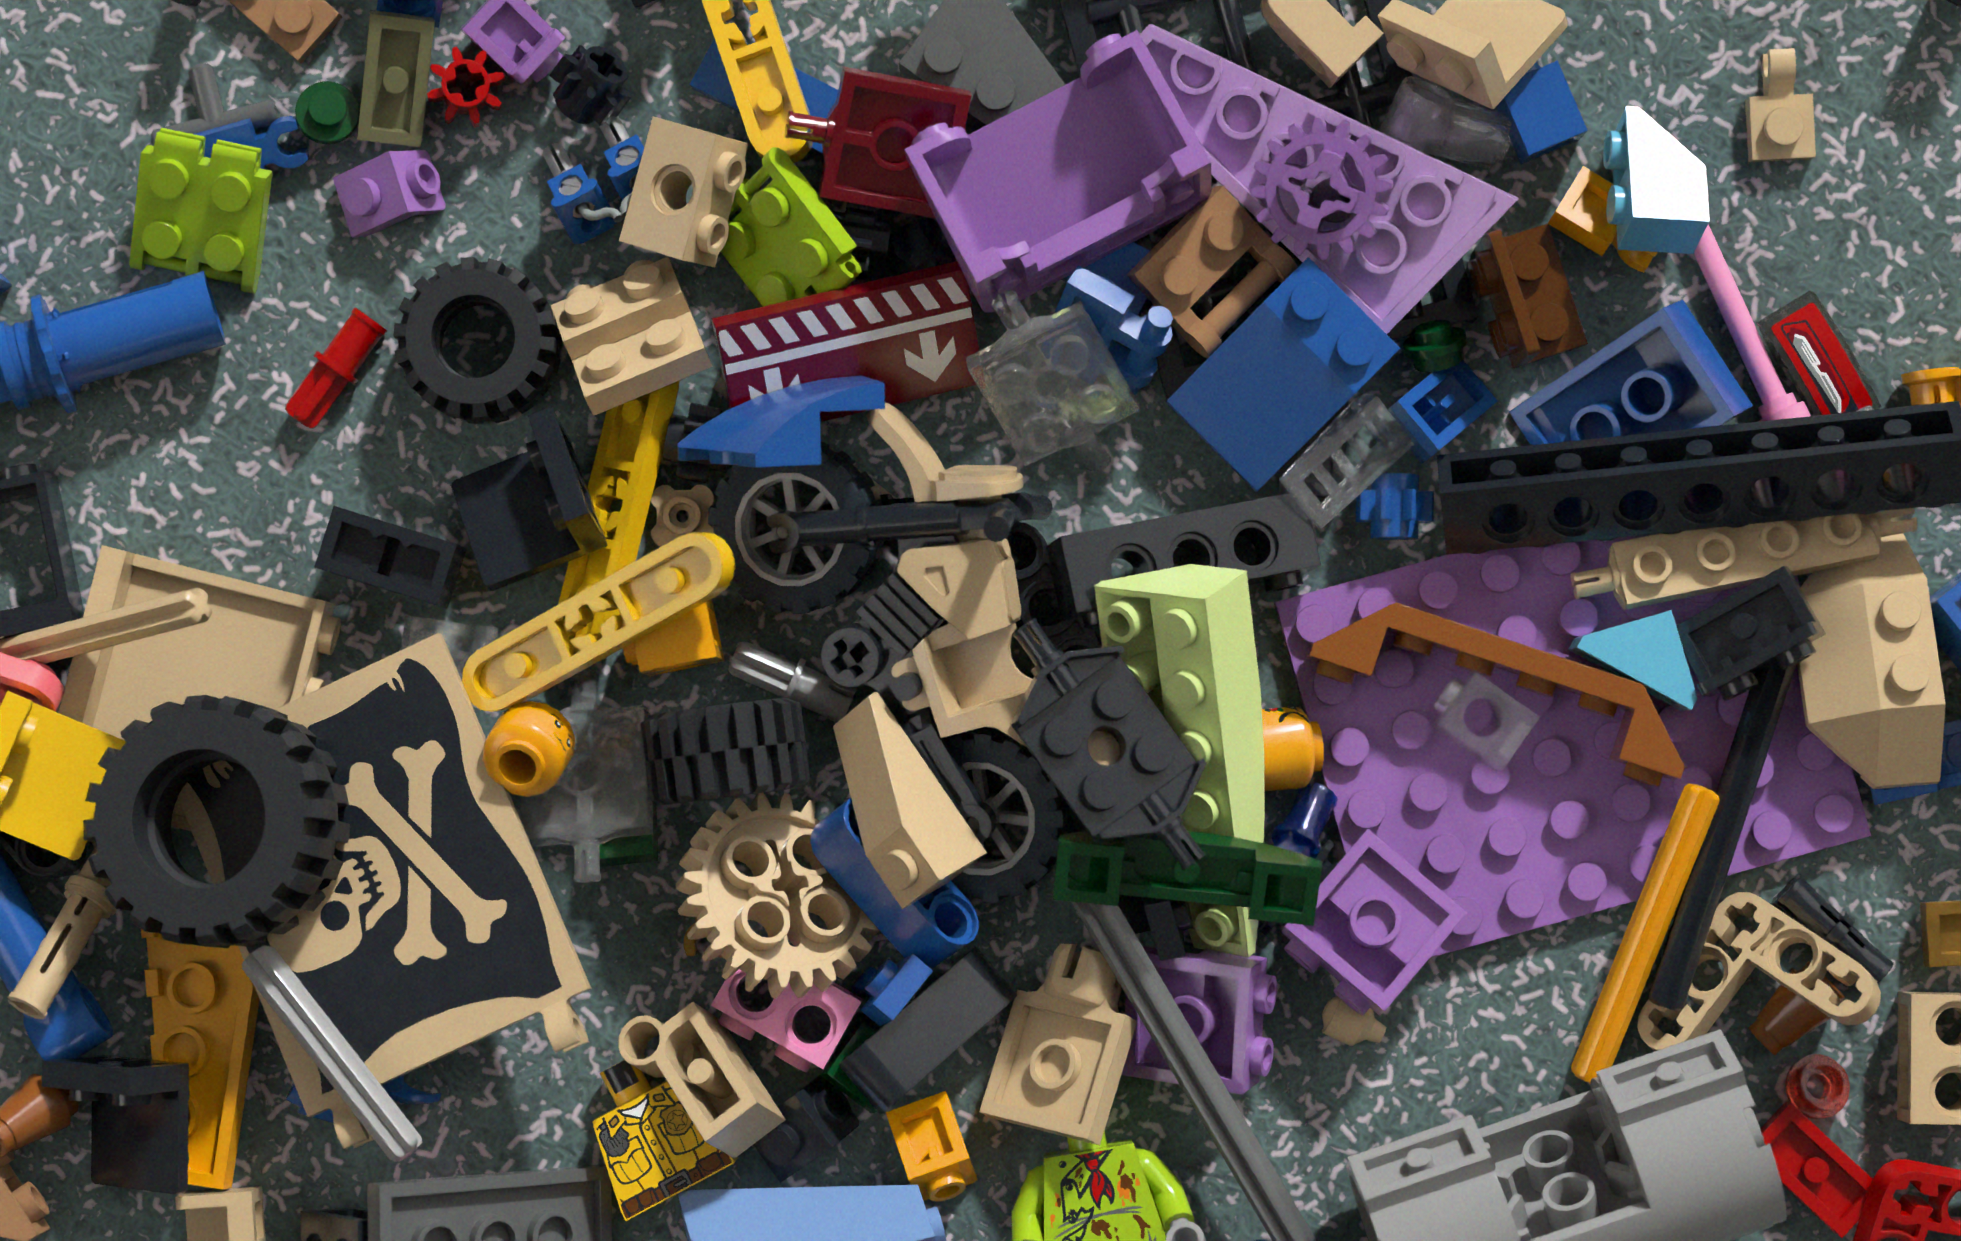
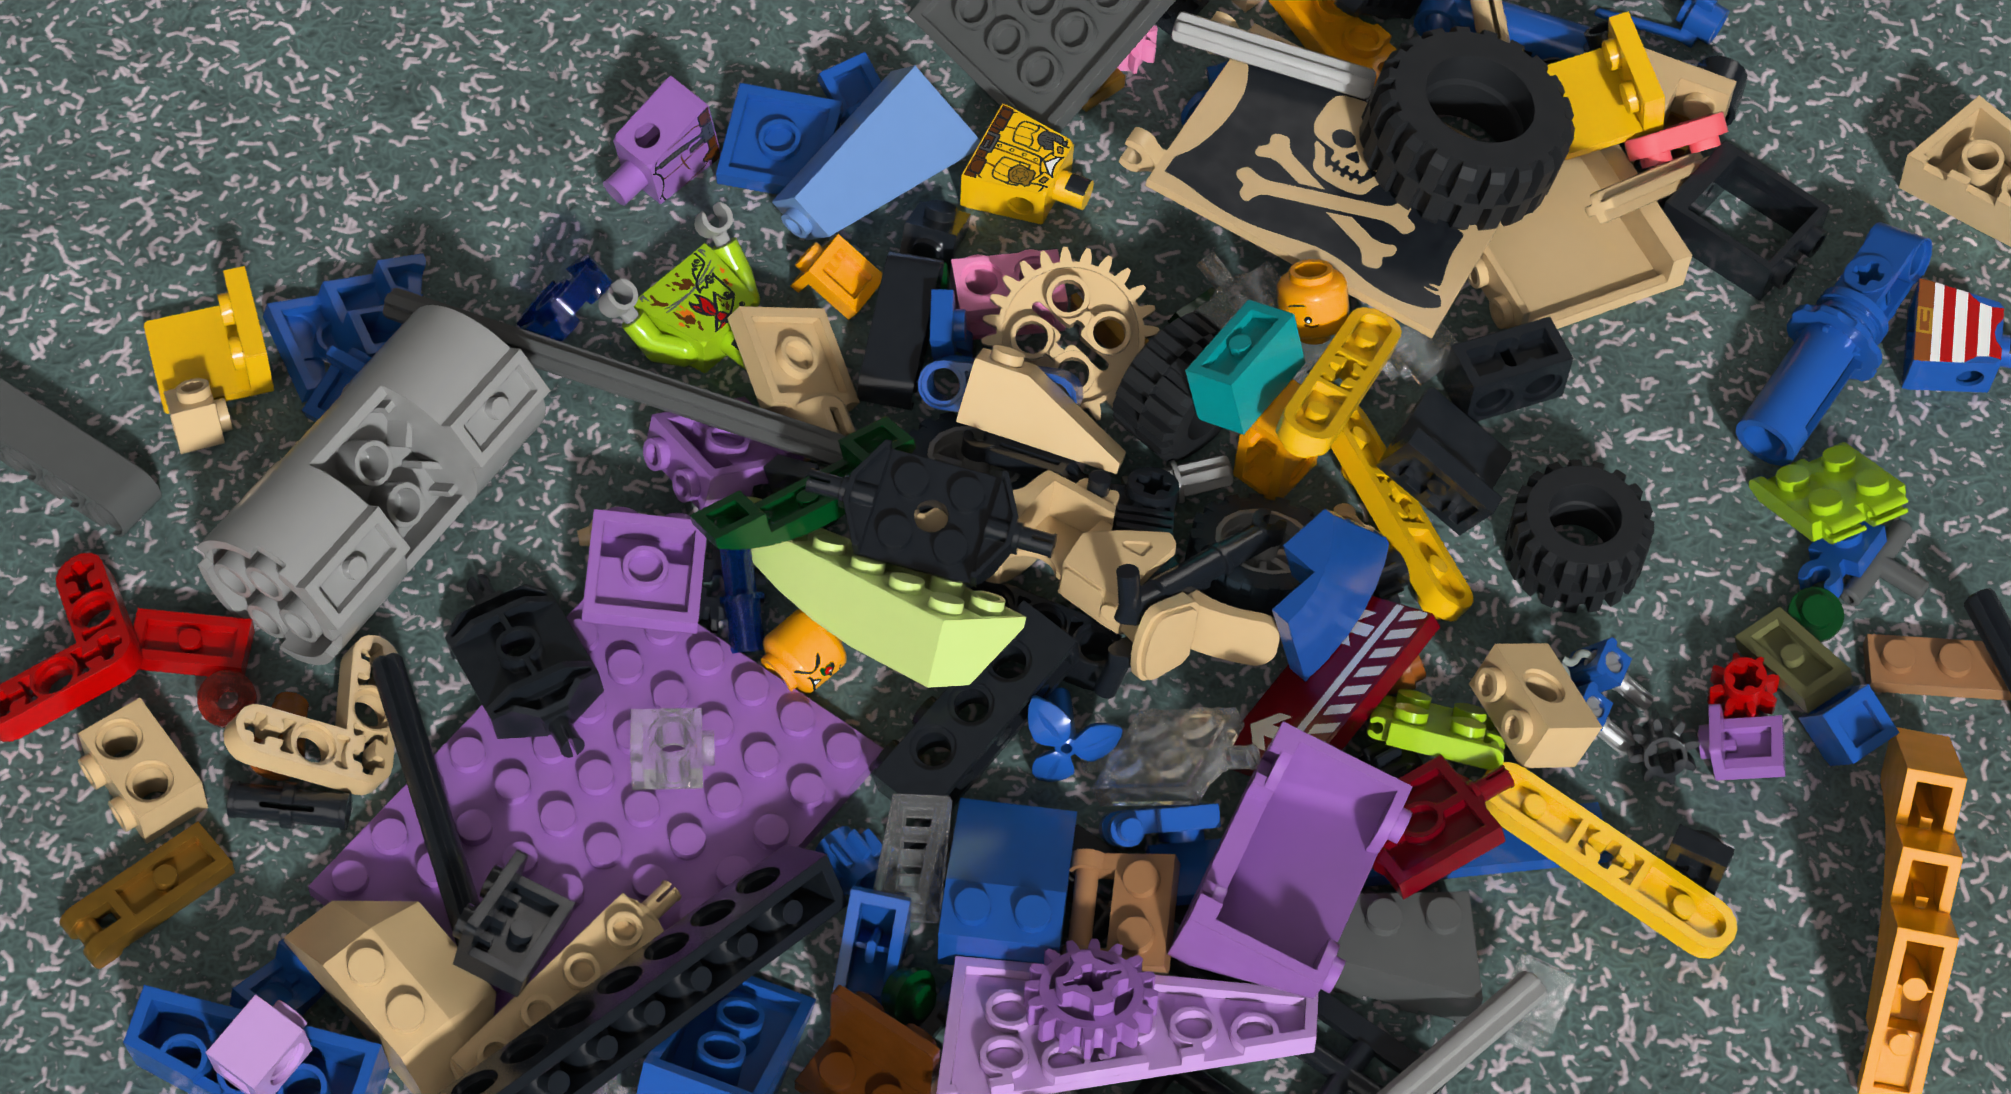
camera: 135 degrees right, 30 degrees down
(334, 369) = (1654, 468): red axle -> none
(389, 191) = (1725, 597): medium lavender bracket -> none
(630, 334) = (1482, 596): tan plate -> none
(683, 691) = (1245, 366): none -> teal panel
(706, 1076) = (1022, 207): tan hinge -> none
(1125, 481) = (1053, 725): none -> blue plant
(1532, 869) = (530, 692): none -> black plate
(1641, 739) = (533, 812): dark orange slope -> none
(1645, 653) = (584, 865): medium azure slope -> none
(1645, 931) = (436, 705): light orange axle -> none

